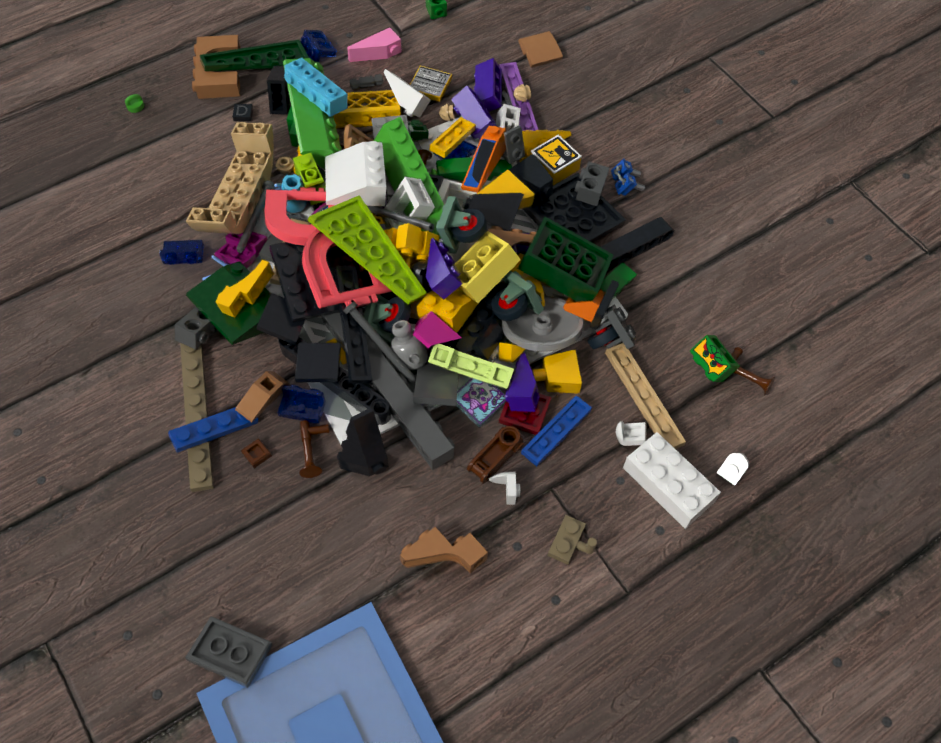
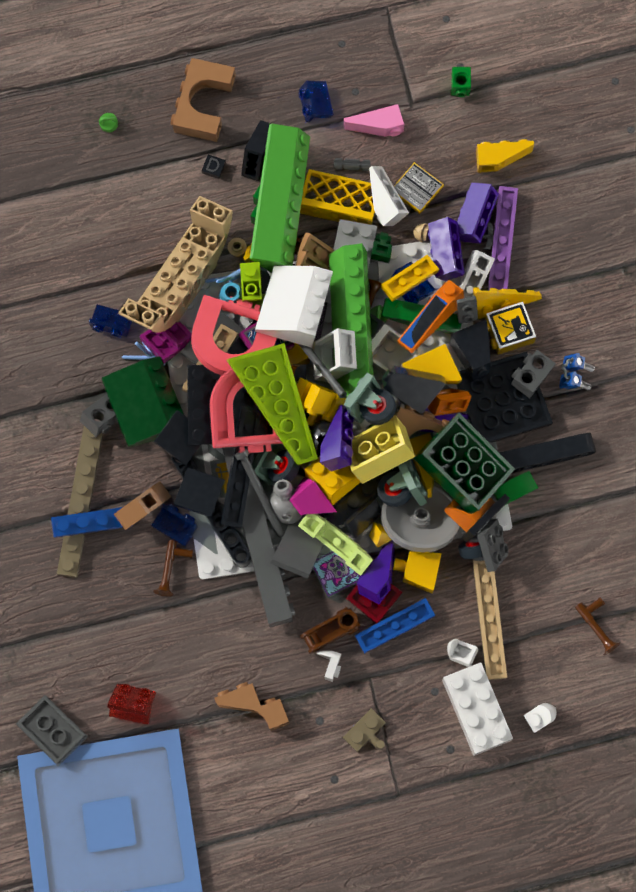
camera: 25 degrees right, 15 degrees up
(247, 290) = (141, 404): yellow slope -> none
(253, 57) = (255, 103): dark green wing -> none
(255, 216) = (210, 277): dark grey bar -> none
(256, 453) = (122, 557): reddish brown tile -> none
(311, 593) = (131, 703): none -> clear red bracket
(315, 86) = (289, 177): medium azure brick -> none
(363, 448) = (214, 592): black wedge -> none
(491, 44) = (495, 156): none -> yellow slope
(522, 93) = (506, 236): tan plate -> none
(528, 221) = (450, 401): none -> orange tile
(540, 49) = (553, 175): medium nougat slope -> none
(714, 358) = (570, 604): green brick -> none

